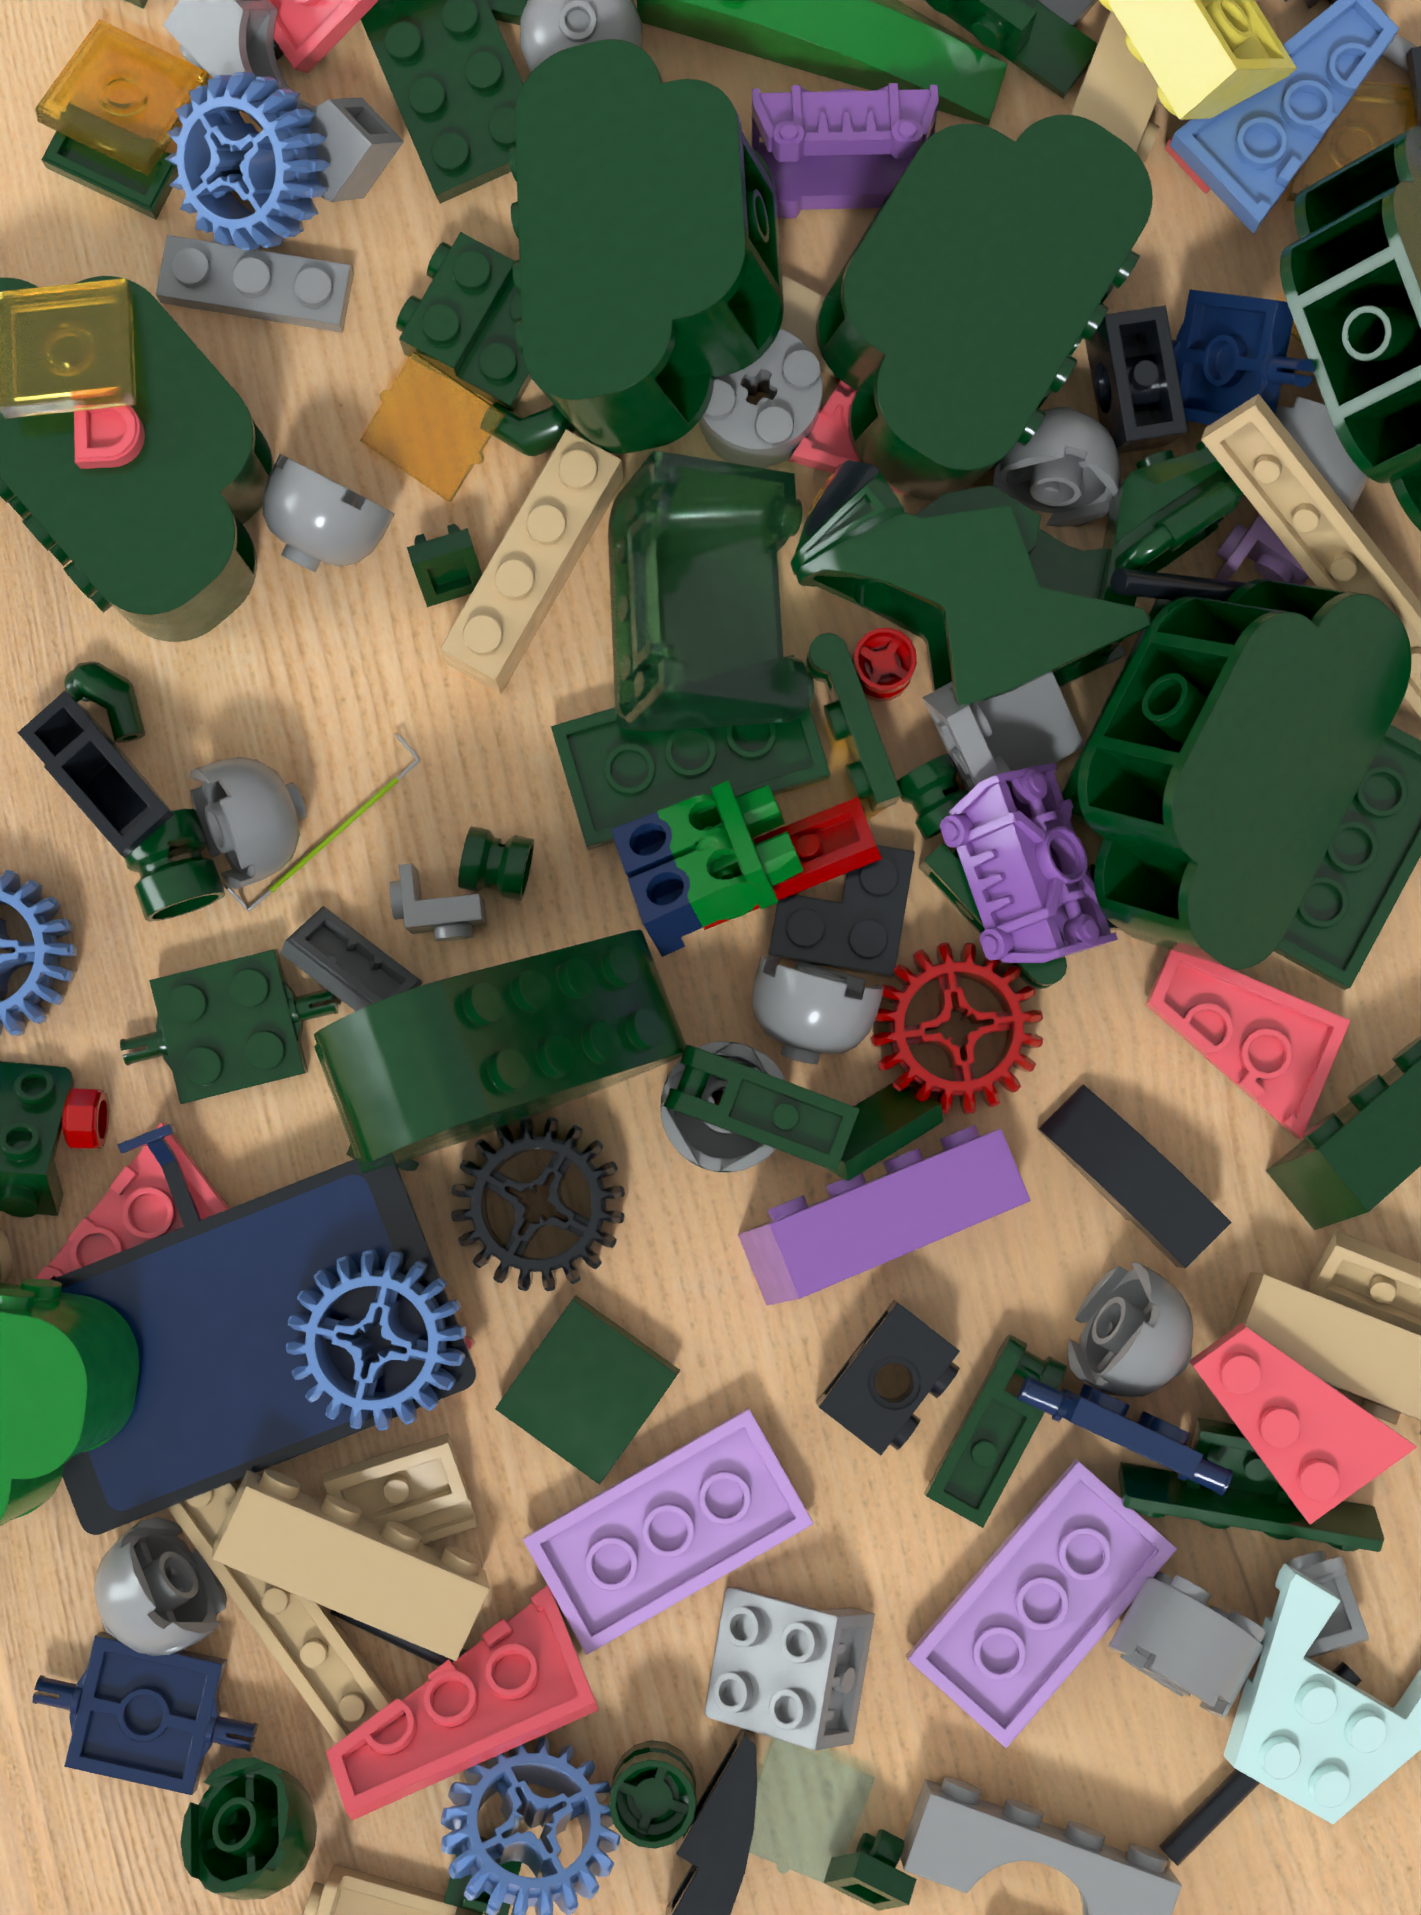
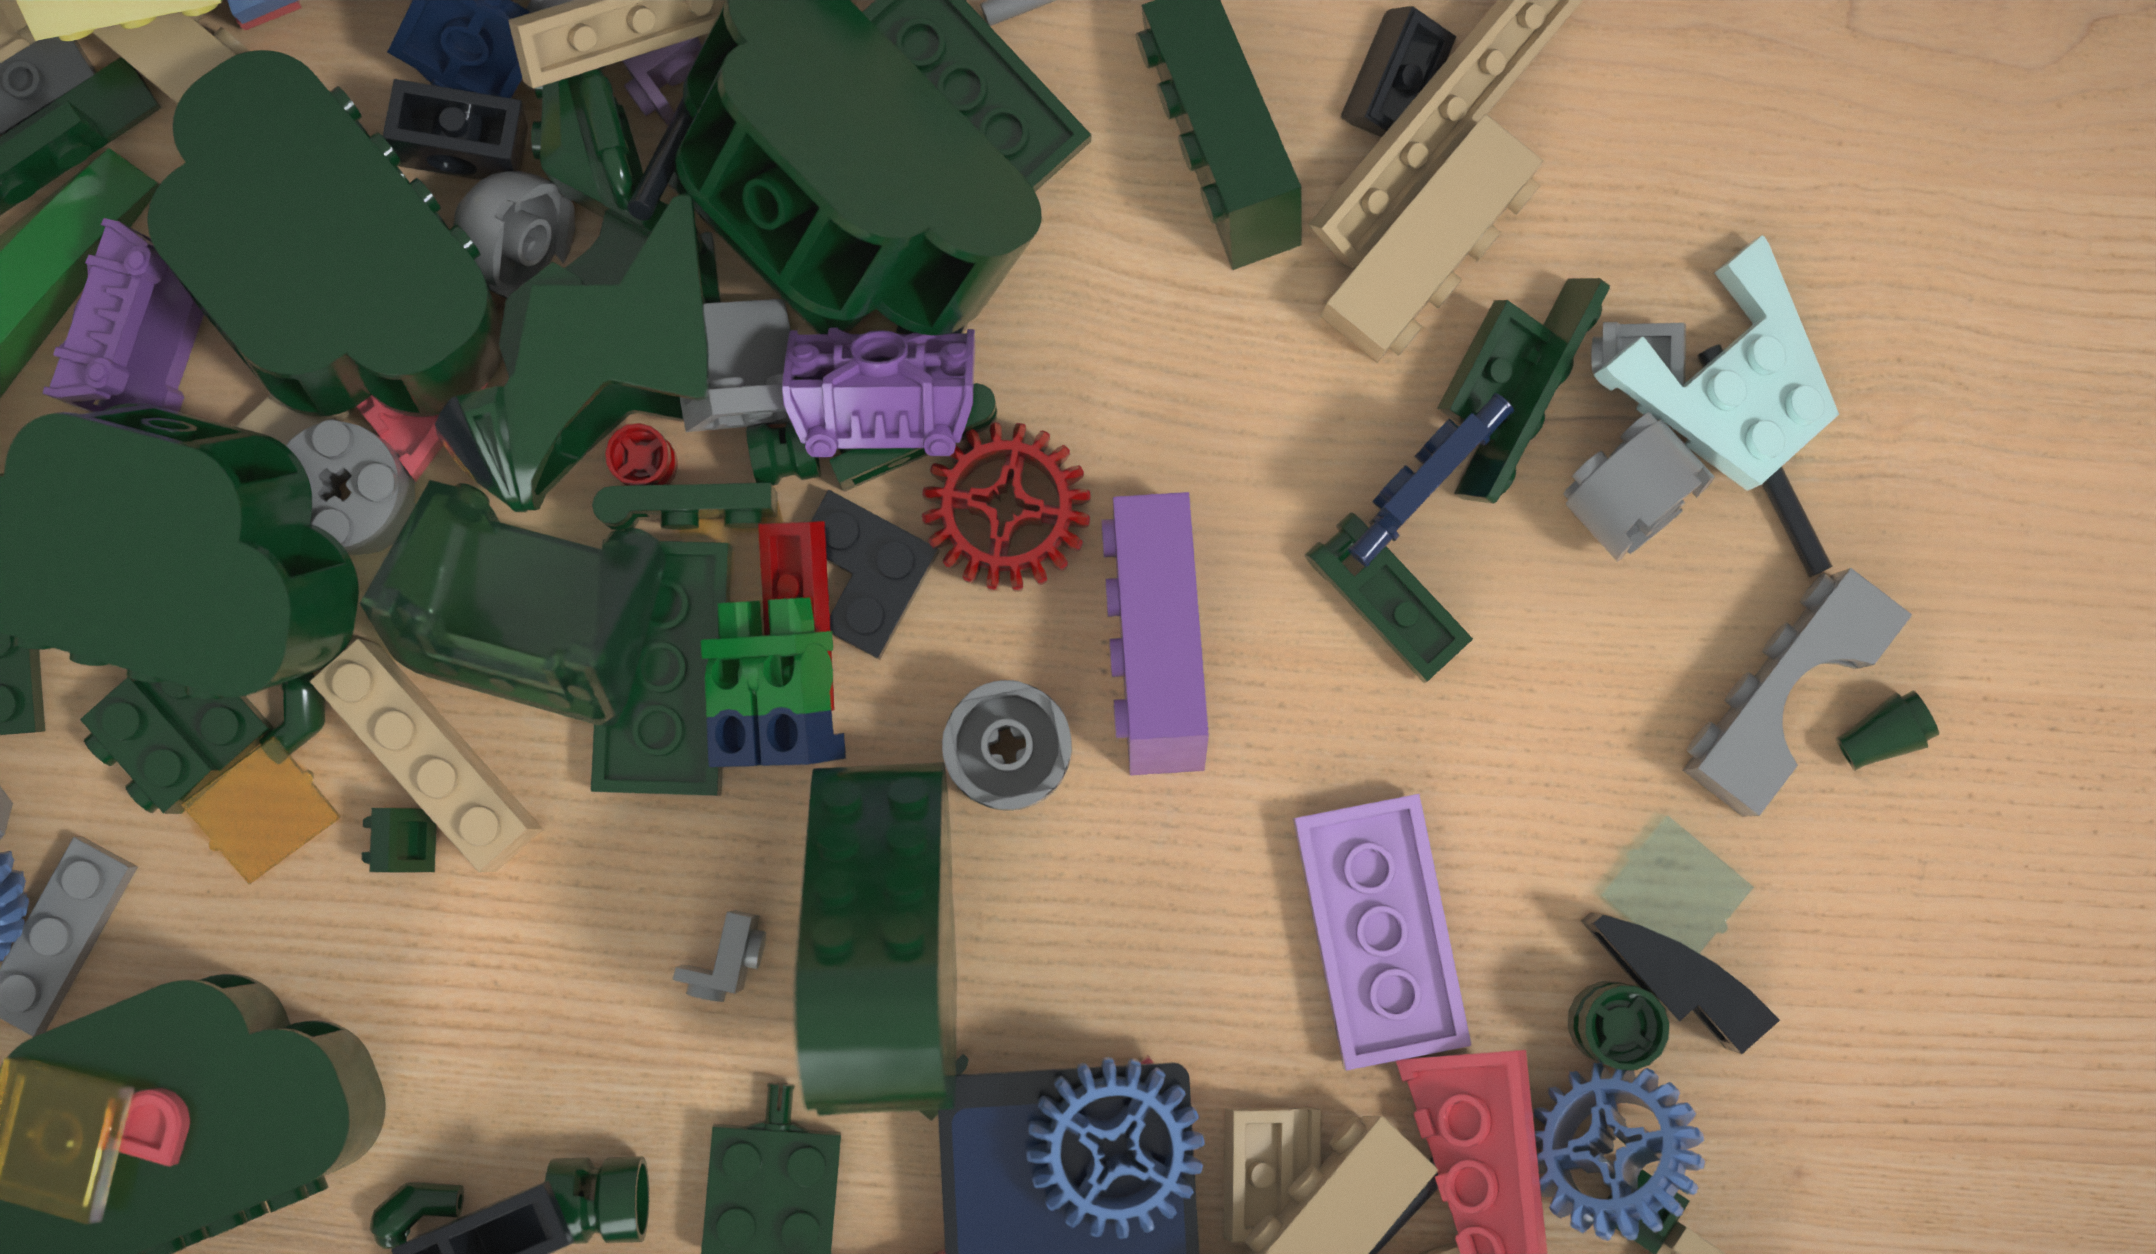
camera: 70 degrees left, 0 degrees up
(248, 817) = (576, 1110): light grey cylinder -> none
(320, 517) = (310, 945): light grey cylinder -> none
(336, 832) = (622, 1034): lime piece -> none
(346, 961) = (747, 1061): dark grey plate -> none
(489, 1178) = (999, 990): black gear -> none
(490, 862) = (702, 890): dark green wheel -> none
(587, 1389) = (1227, 963): dark green slope -> none
(764, 1108) = (1021, 708): dark green plate -> none
(789, 1669) = (1544, 861): light grey bracket -> none
(813, 1008) = (942, 633): light grey cylinder -> none
(852, 1392) = (1311, 717): black brick -> none
(871, 1872) = (1751, 846): dark green tile -> none
(886, 1125) = (1075, 617): dark green tile -> none
(1040, 1603) = (1558, 609): lavender plate -> none
(1133, 1333) = (1341, 440): light grey cylinder -> none
(1134, 1177) = (1198, 390): black slope -> none
(1252, 1033) = (1102, 238): coral wing -> none
(1298, 1425) = (1472, 319): coral wing -> none

